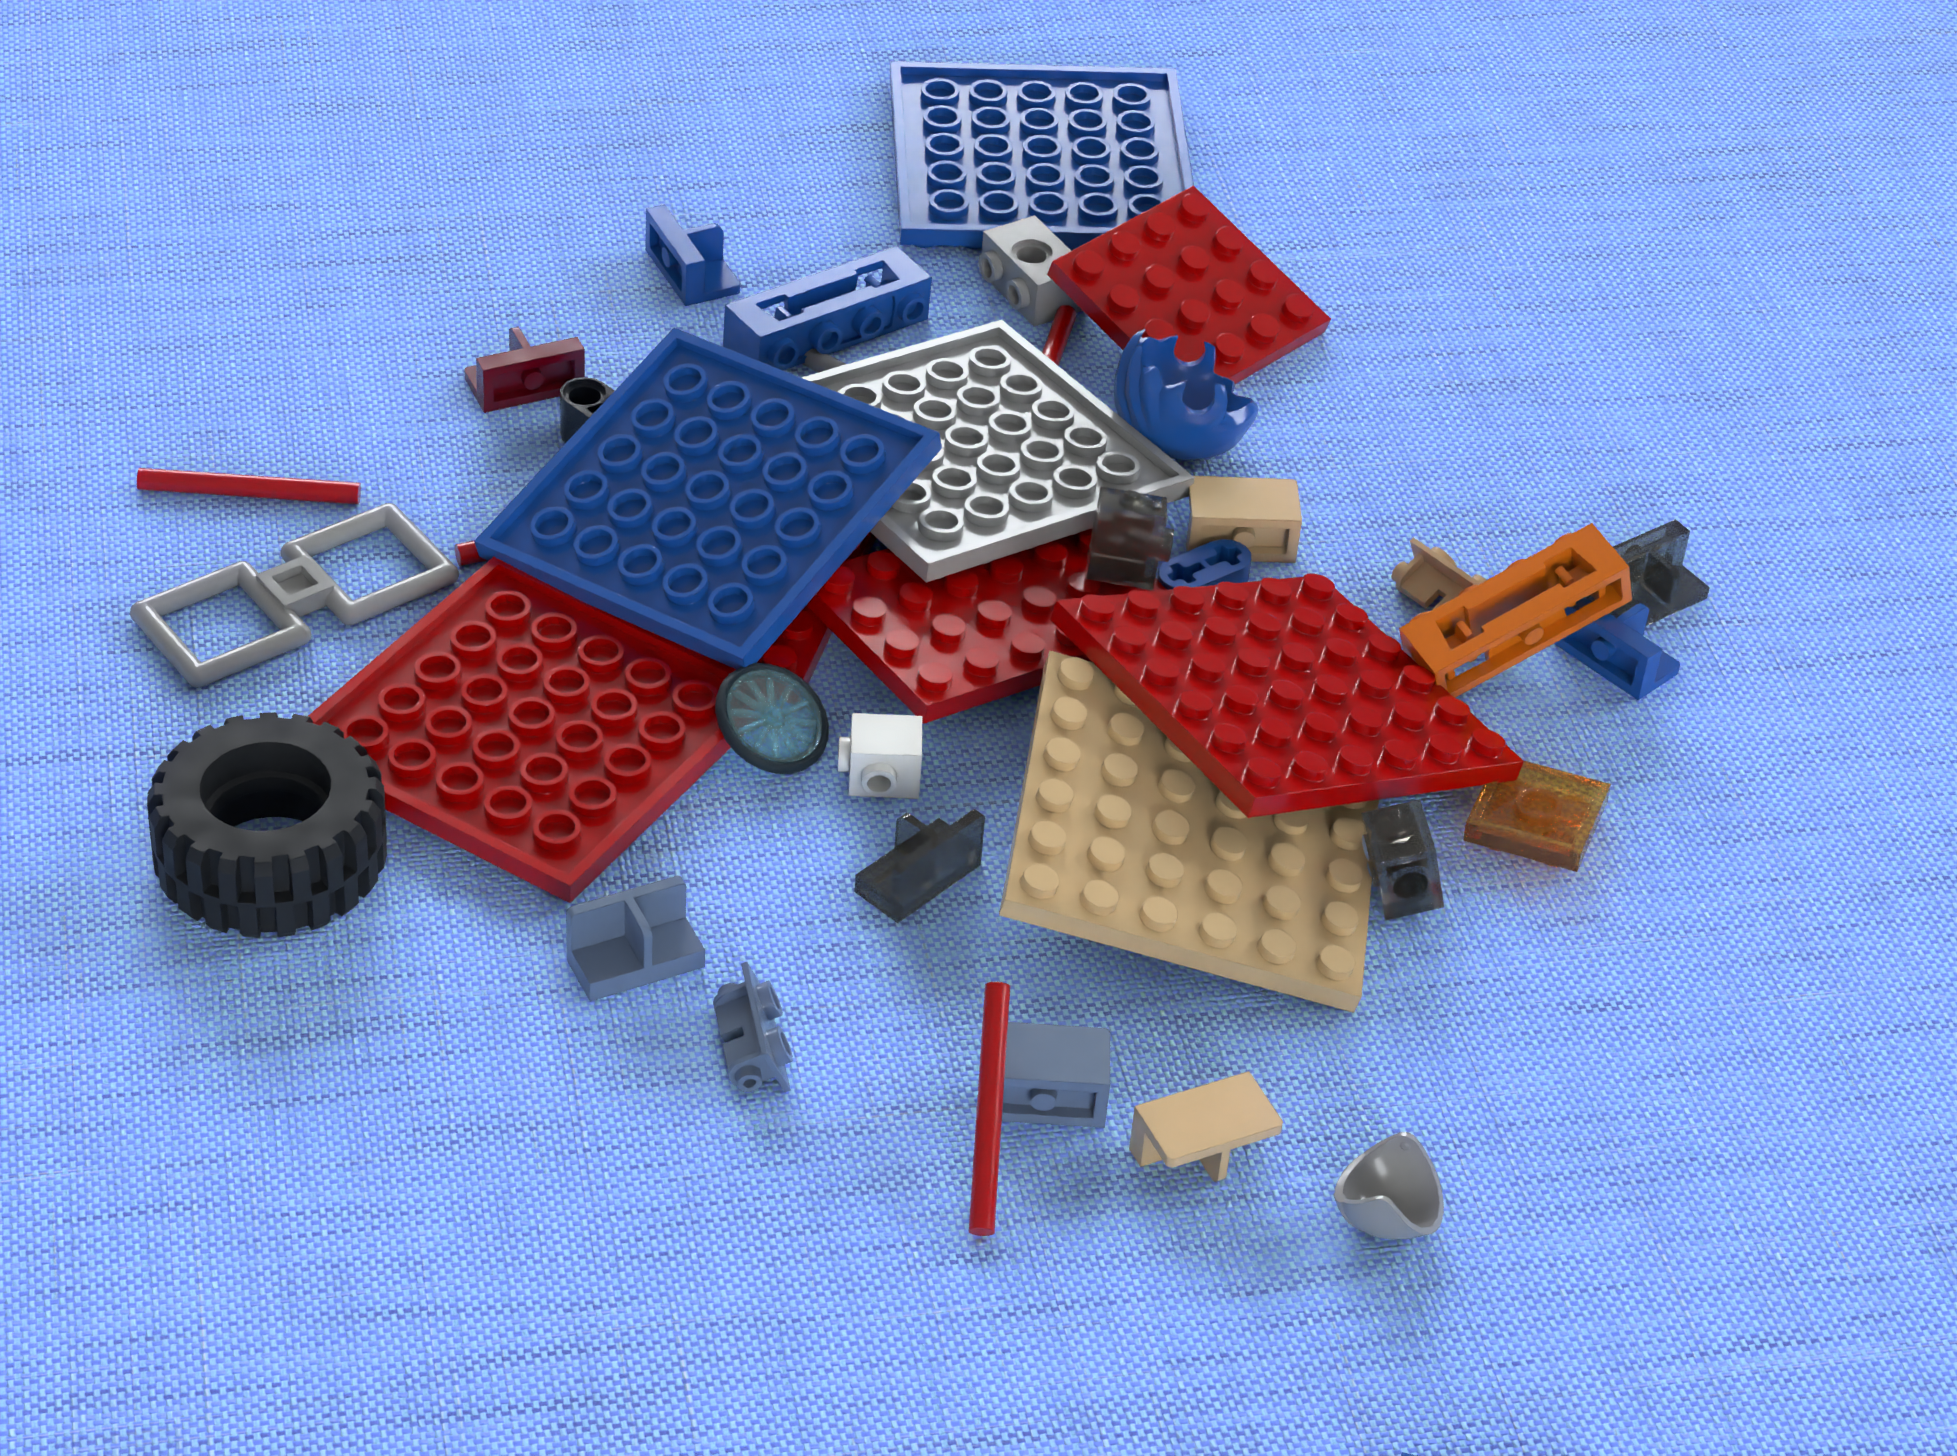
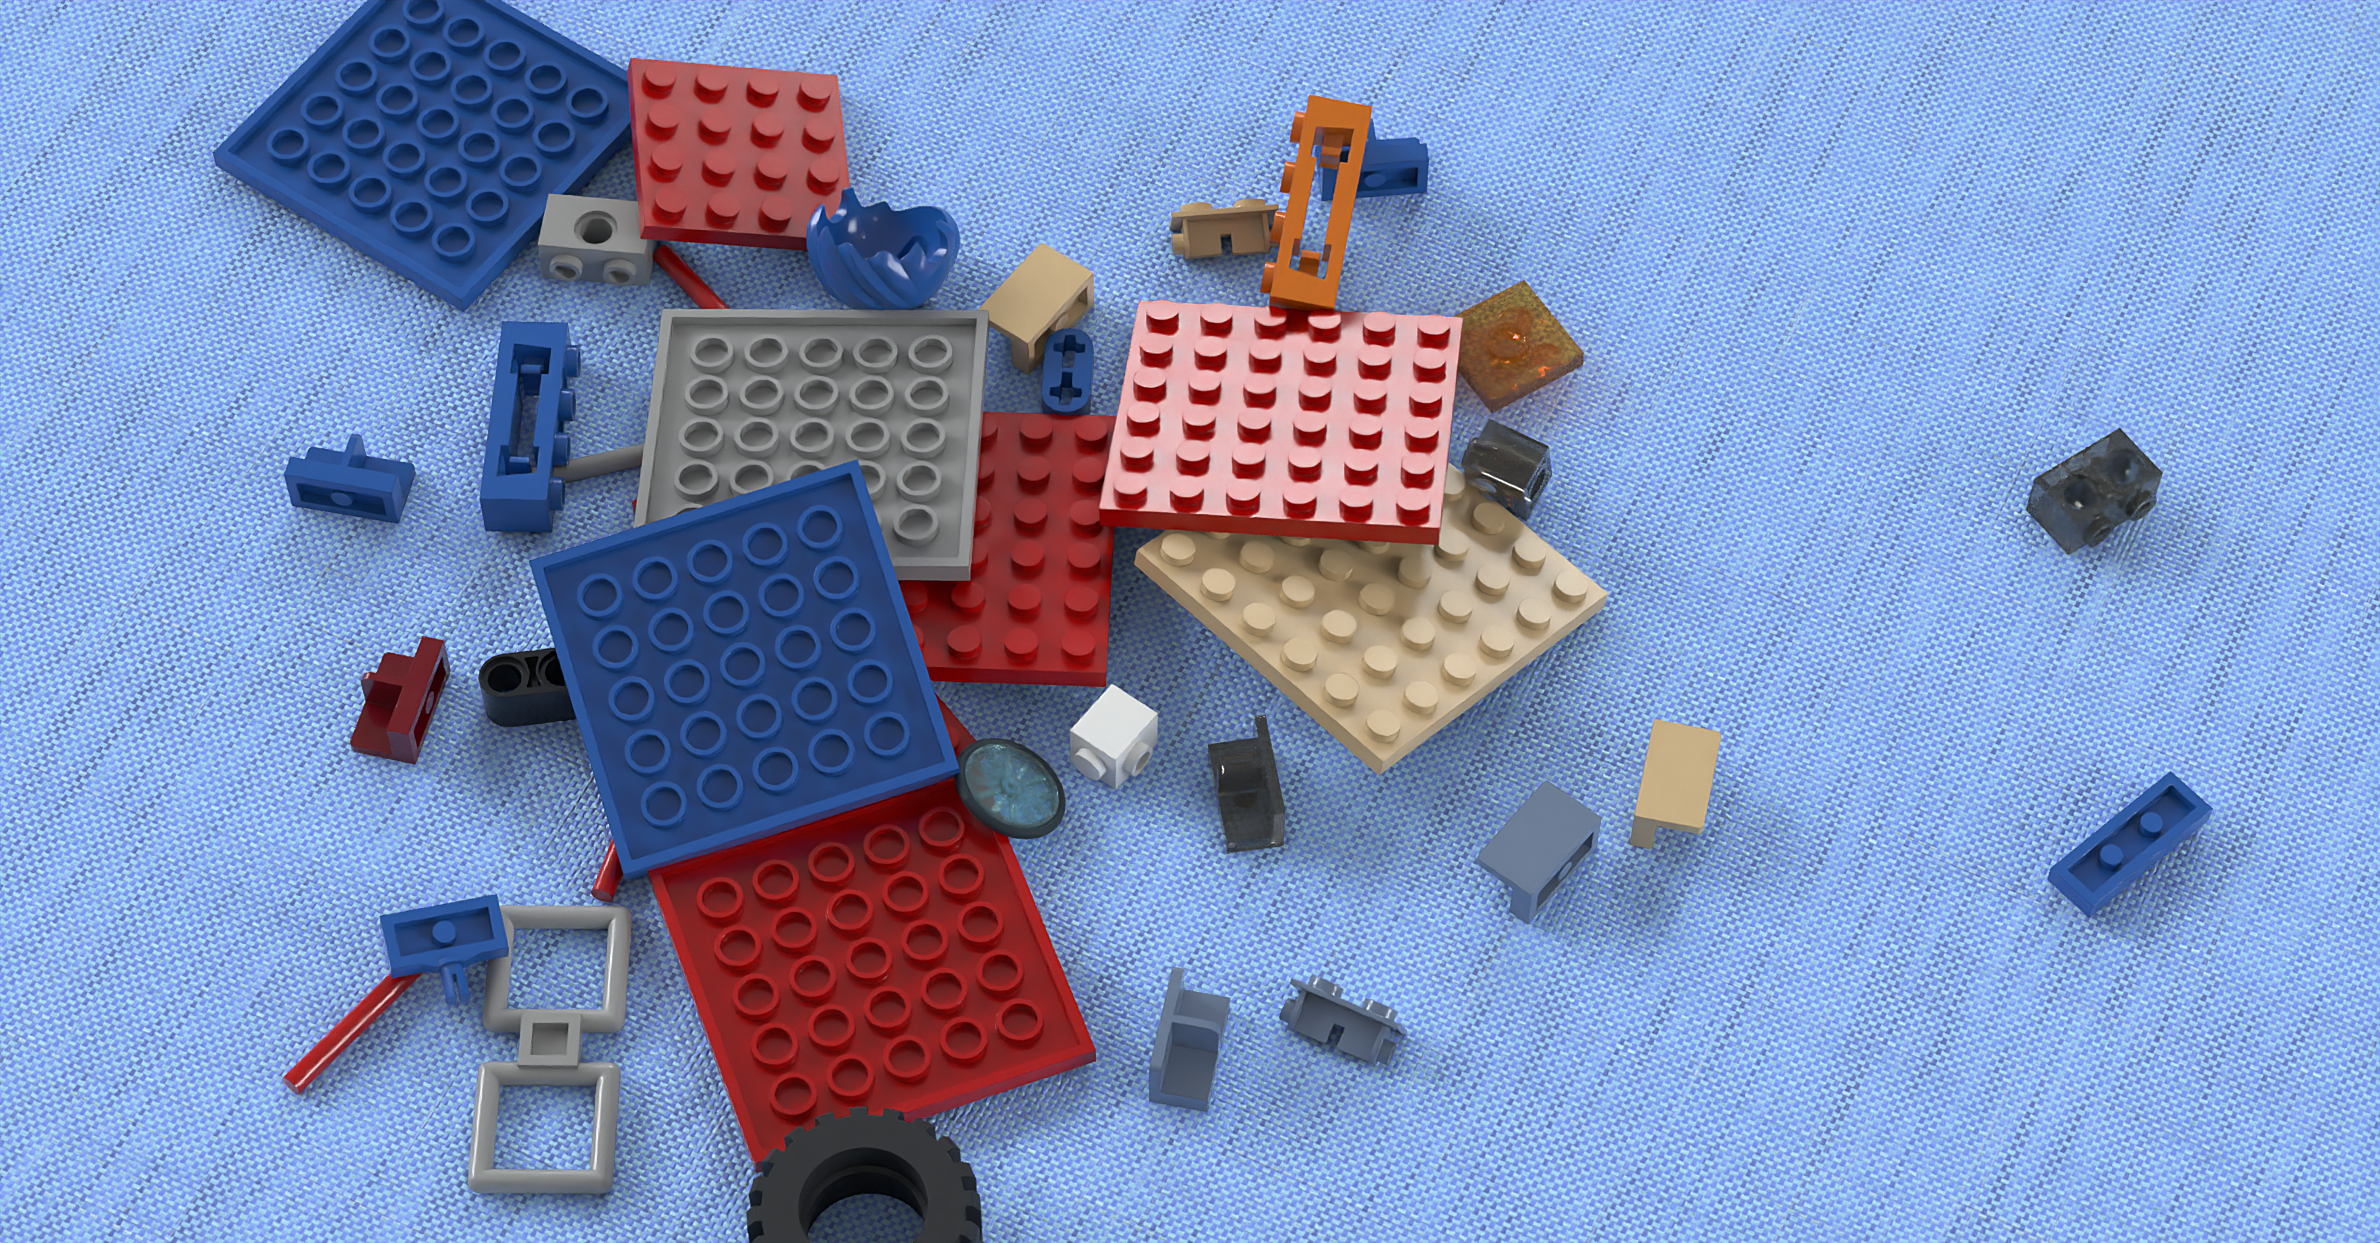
camera: 50 degrees left, 15 degrees up
(325, 478) = (445, 941): none -> blue plate
(989, 1109) = (1565, 911): red bar -> none
(1128, 538) = (1039, 408): clear smoke head -> none
(1392, 1190) = (1814, 709): light grey helmet -> none
(1659, 573) = (1316, 74): clear smoke panel -> none
(1855, 1285) = (2090, 485): none -> clear smoke brick

